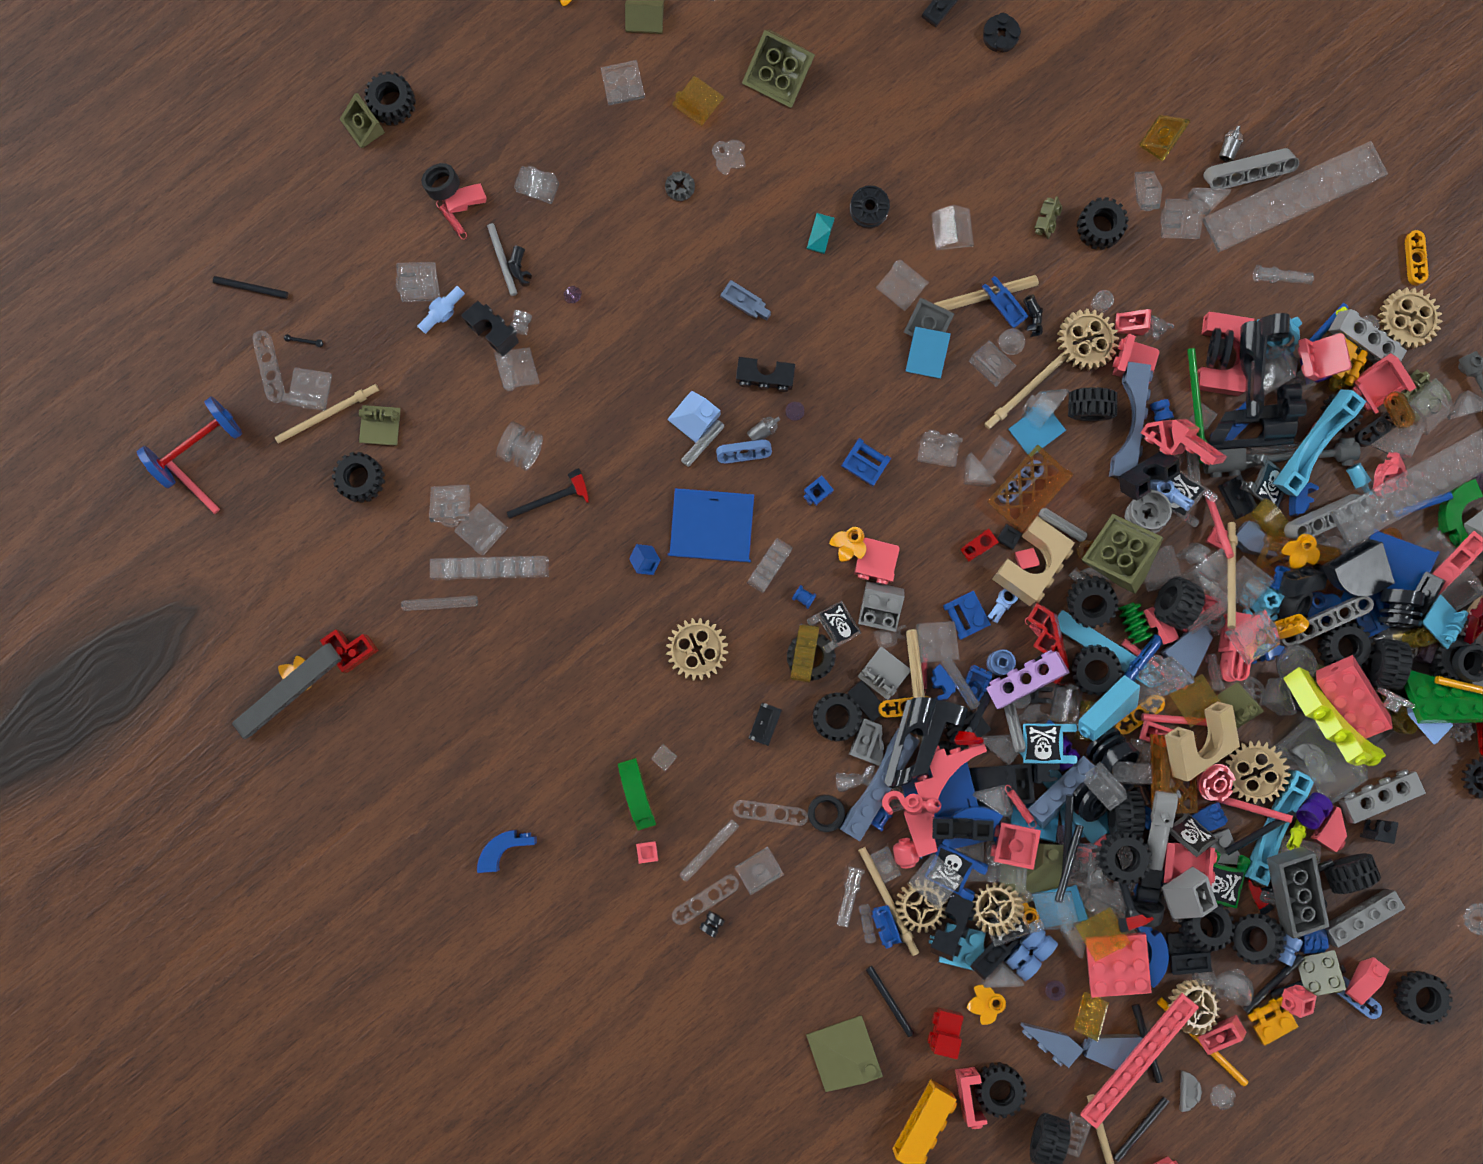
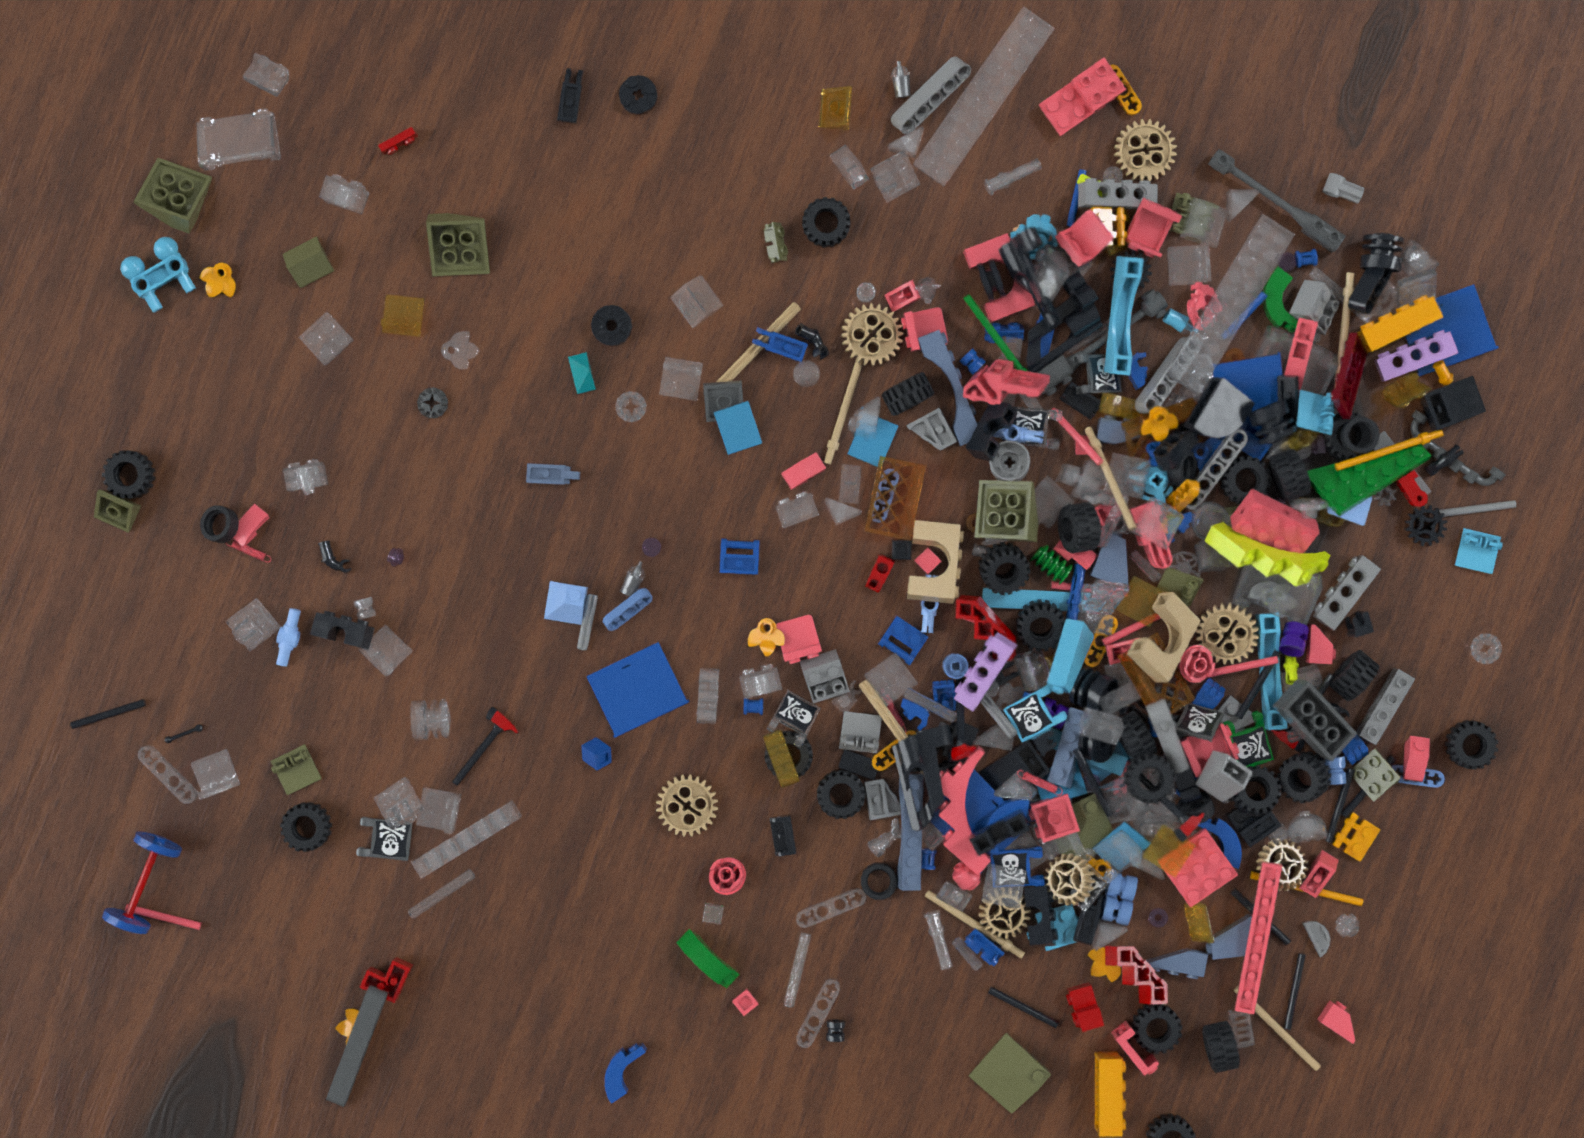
camera: 30 degrees left, 5 degrees up
(359, 396) = (263, 754): tan bar -> none
(419, 531) = (386, 842): none -> flag
(502, 259) = (314, 560): light grey piece -> none
(696, 730) = (727, 876): none -> coral cone
(749, 375) = (591, 538): black arch -> none
(759, 870) = (850, 962): clear slope -> none
(821, 485) = (714, 600): blue brick -> none
(824, 577) = (760, 681): none -> clear brick
(842, 276) = (624, 400): none -> clear gear
(912, 803) = (946, 834): coral piece -> none
(963, 420) = (803, 470): none -> coral slope
(992, 363) = (800, 403): clear slope -> none
(1012, 1028) = (1137, 972): none -> red brick
(1062, 524) = (941, 514): light grey axle -> none
(1069, 863) = (1107, 807): black bar -> none
(1096, 450) = (934, 429): none -> light grey wing
(1211, 403) = (1012, 330): none -> blue hinge
(1298, 1001) = (1366, 809): coral brick -> none
(1376, 434) = (1182, 255): black beam -> none
(1382, 242) = (1082, 97): none -> coral piece
(1400, 409) = (1178, 243): clear orange plate -> none

